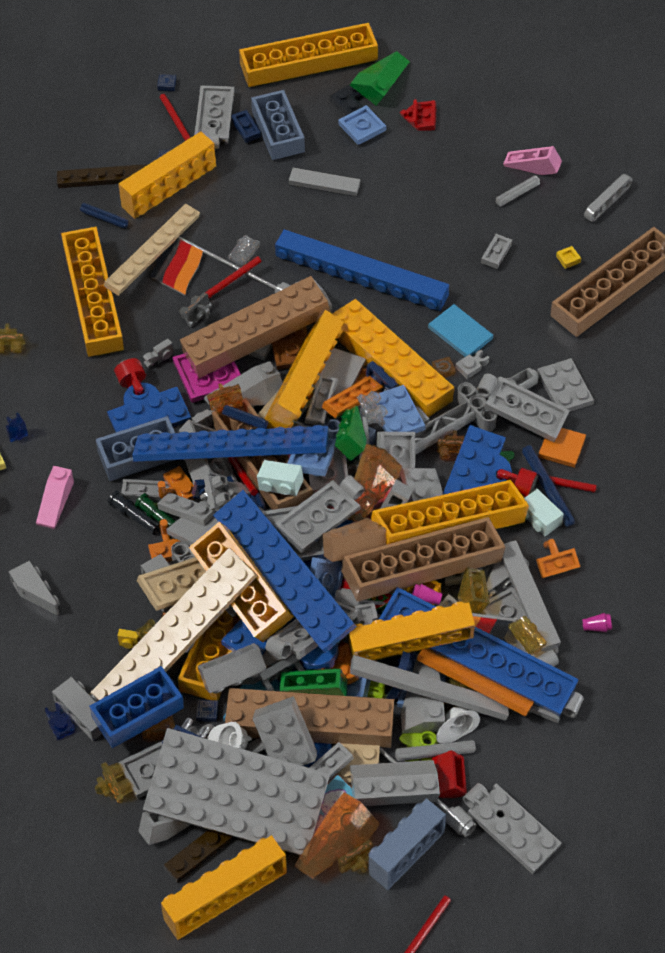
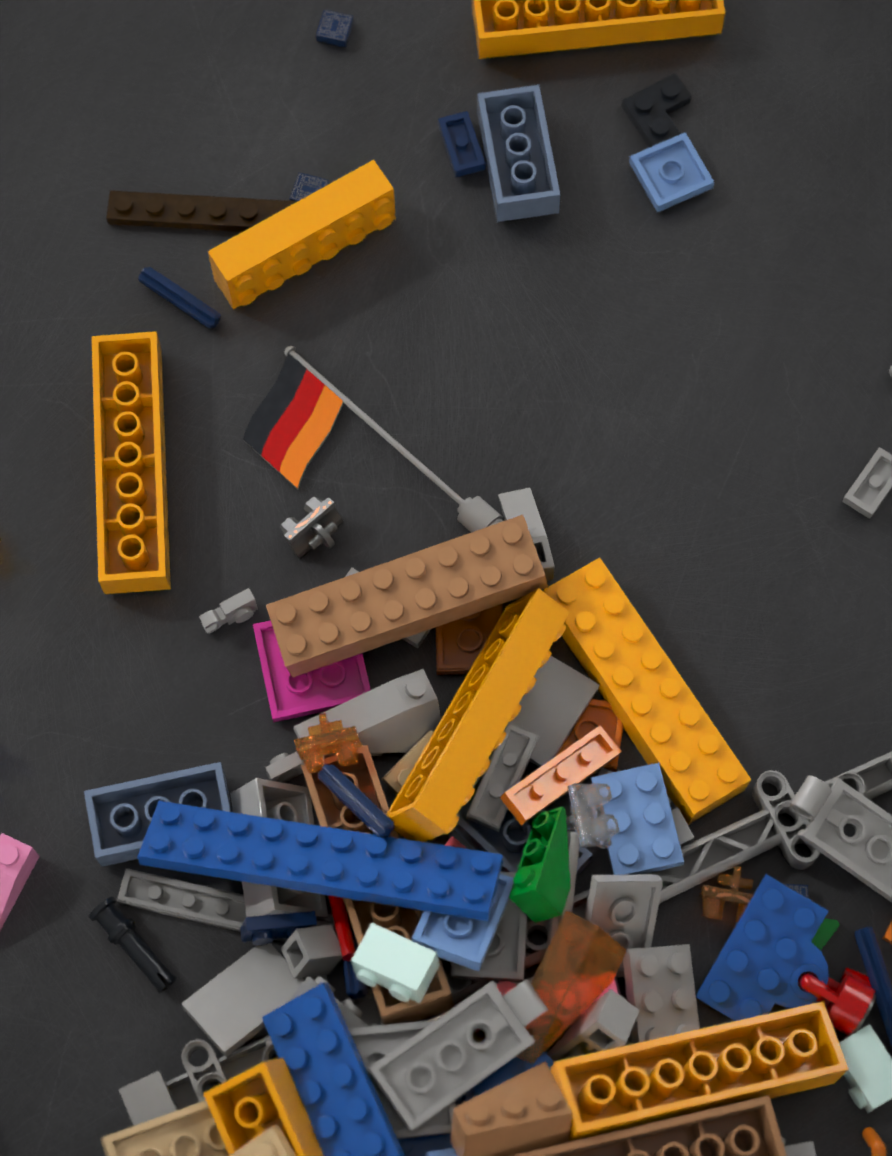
camera: 10 degrees right, 15 degrees up
(143, 401) = (186, 718): blue plate -> none
(151, 249) = (249, 391): tan plate -> none
(152, 510) = (170, 948): dark green pin -> none
(163, 547) = (173, 1032): orange plate -> none
(174, 116) = (339, 108): red bar -> none
(178, 484) = (222, 904): orange plate -> none
(186, 509) = (224, 965): light grey plate -> none
(214, 491) = (277, 953): light grey hips -> none
(215, 109) = (408, 105): light grey hinge -> none
(241, 271) = (384, 469): red bar -> none
(243, 250) = (415, 414): clear hips -> none
(324, 181) = (584, 283): light grey tile -> none
(362, 270) = (623, 488): blue brick -> none
(379, 77) = (719, 76): green wedge -> none
(380, 376) = (615, 725): dark blue plate -> none
(421, 115) = (782, 165): red slope -> none
(444, 367) = (738, 719): clear orange tile -> none
(460, 331) = (782, 645): dark azure tile -> none
(471, 365) = (788, 722): light grey plate -> none

